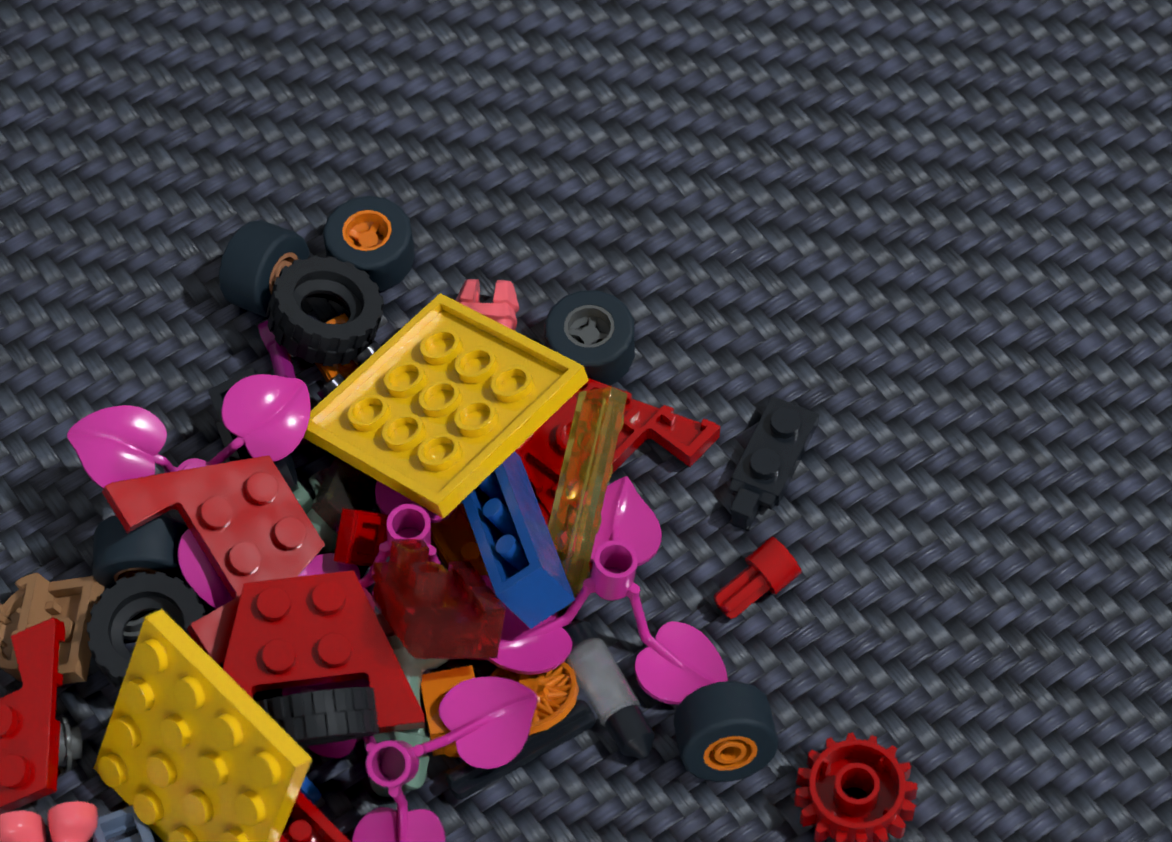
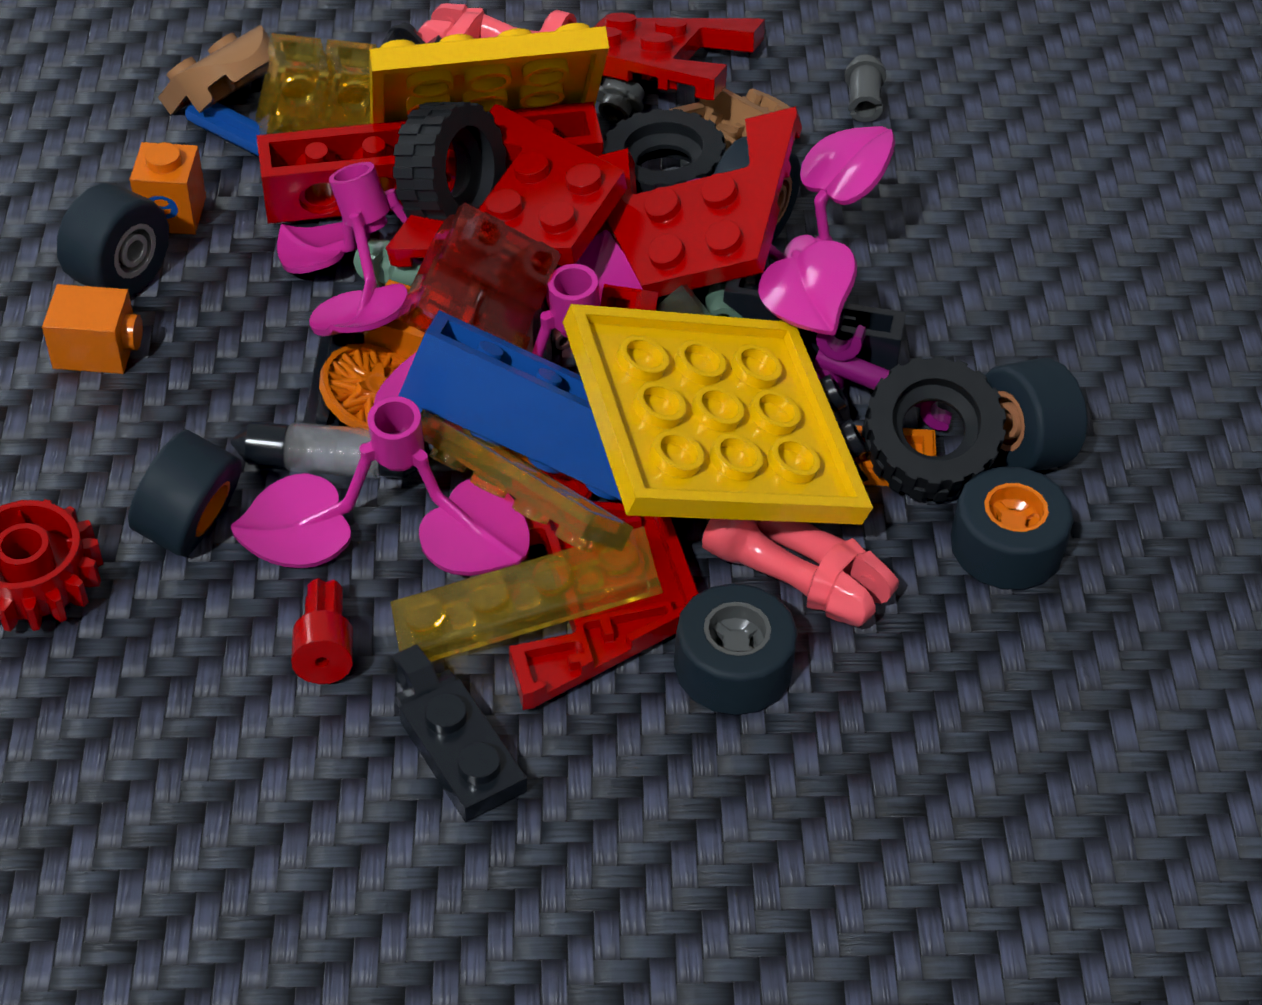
camera: 120 degrees right, 10 degrees down
(663, 484) = (526, 597): none -> clear yellow plate

